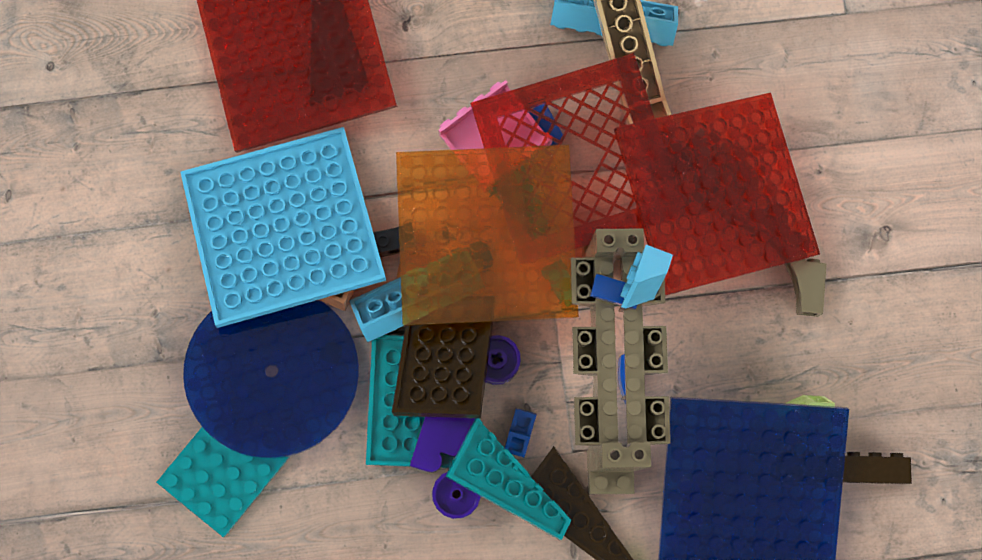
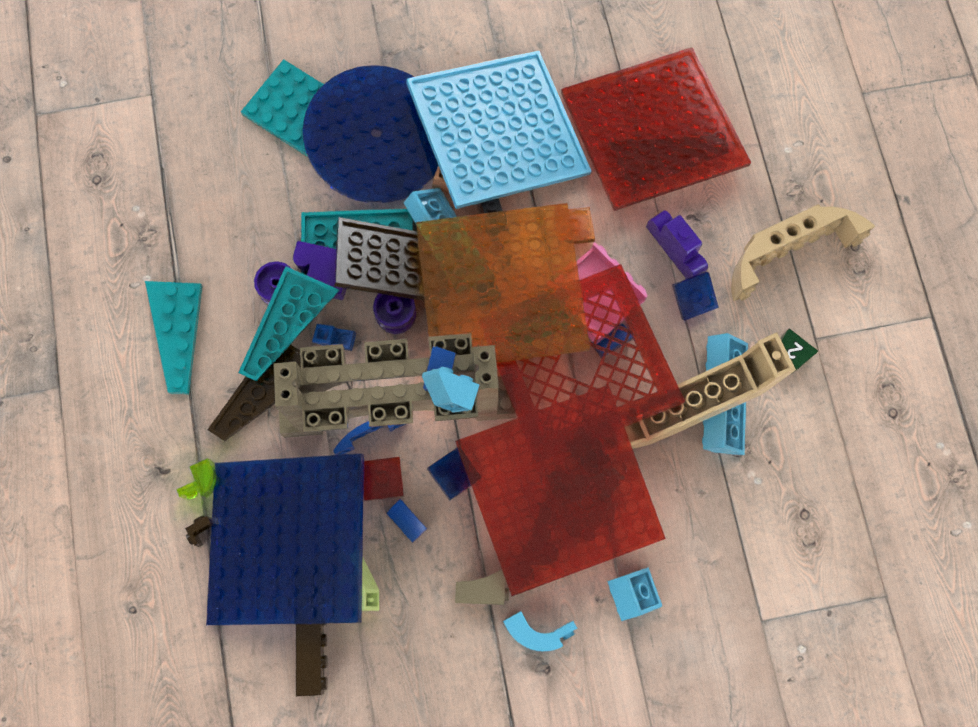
camera: 90 degrees right, 5 degrees down
(404, 143) = (582, 225): none -> clear orange plate
(442, 41) = (679, 243): none -> dark purple brick
(503, 31) = (695, 296): none -> clear blue plate
(684, 310) = (450, 474): none -> clear blue plate
(685, 381) = (383, 479): none -> clear red plate
(731, 362) = (406, 520): none -> blue slope
(818, 132) = (634, 594): none -> medium azure slope
(860, 236) = (526, 636): none -> medium azure arch

